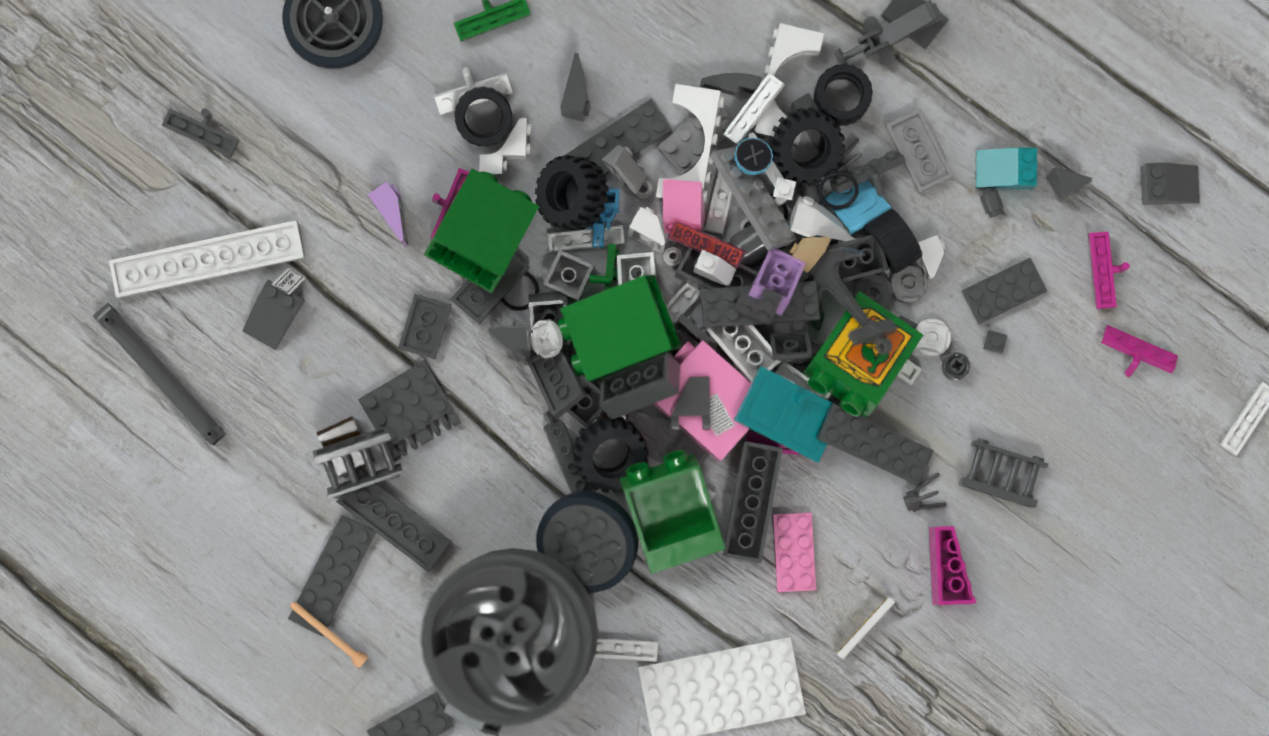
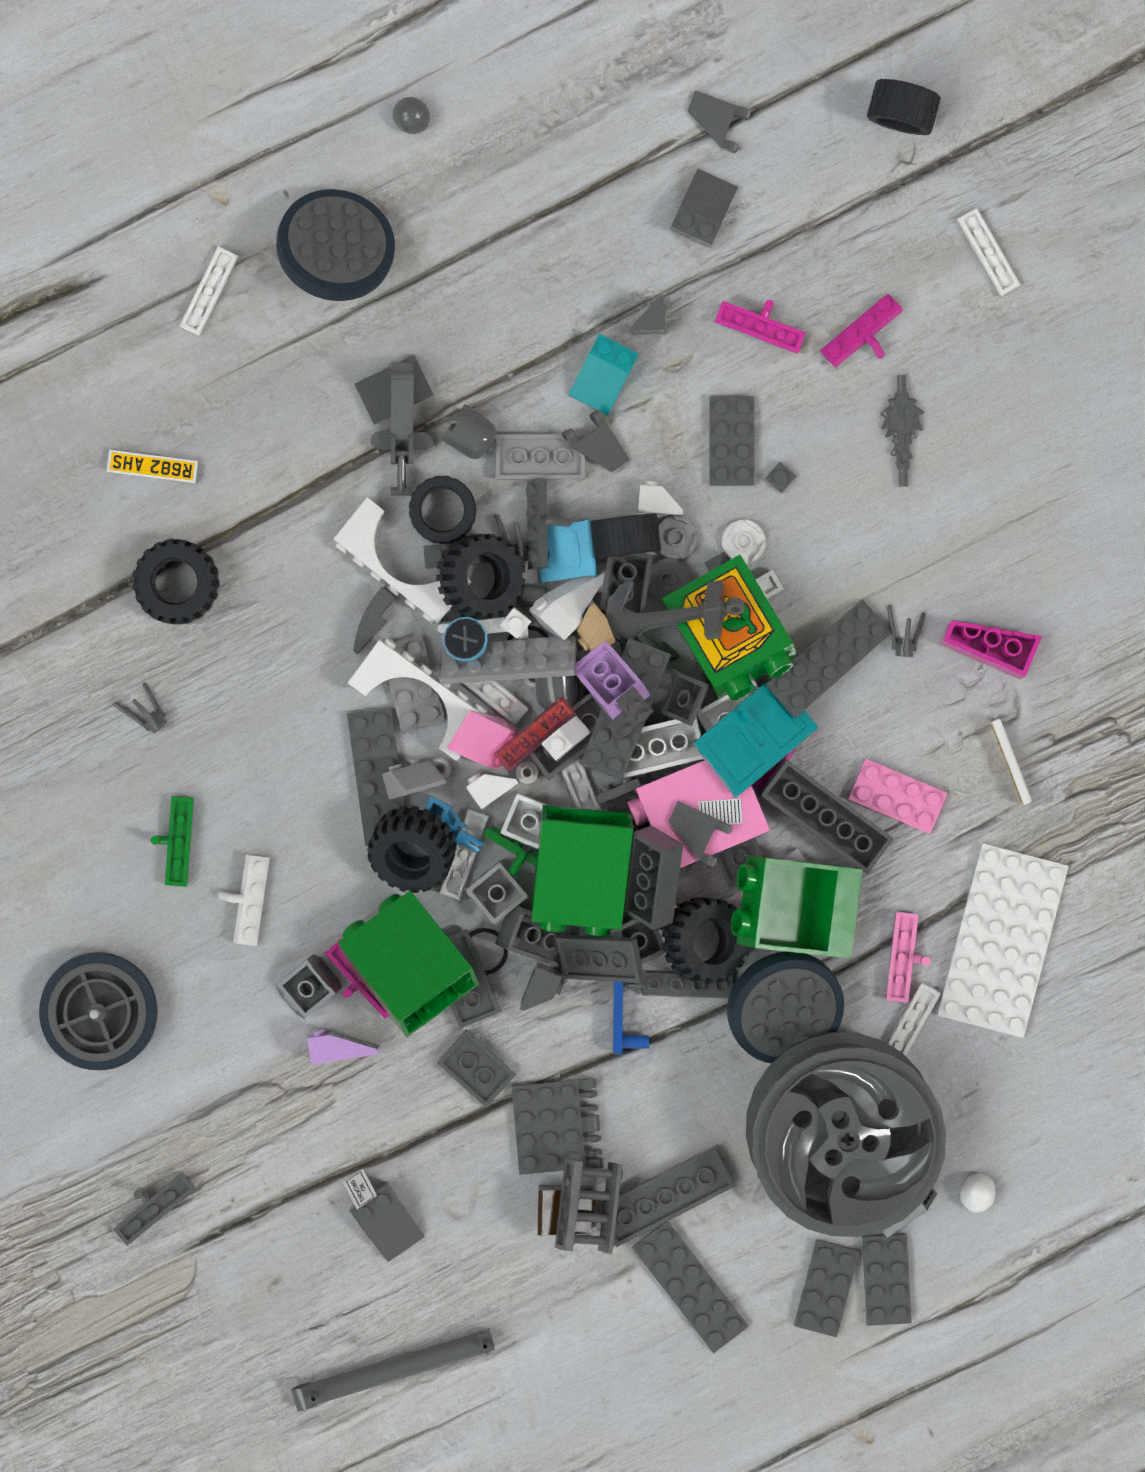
camera: 60 degrees left, 5 degrees up
(206, 259) = (294, 1264): white plate -> none
(357, 657) = (787, 1300): light nougat piece -> none
(381, 683) = (826, 1288): none -> dark grey plate
(428, 168) = (308, 986): none -> dark grey slope
(483, 139) = (309, 905): black tyre -> none
(499, 426) = (619, 1040): none -> blue piece
(514, 148) = (330, 883): white arch -> none
(546, 338) = (553, 948): white tile -> none
(575, 98) = (307, 793): dark grey slope -> none
(670, 617) = (903, 957): none -> bright pink plate
(754, 109) = (413, 612): white tile -> none
(837, 174) = (527, 558): black tyre -> none
(911, 88) = (472, 434): none -> dark grey cylinder
(951, 190) = (599, 444): none -> dark grey flag
(956, 366) = (786, 532): dark grey wheel -> none
(989, 486) = (927, 559): dark grey fence -> none
(992, 203) = (633, 407): dark grey brick -> none
(1083, 414) = (902, 421): none -> dark grey piece
(1243, 160) = (715, 117): none -> dark grey flag

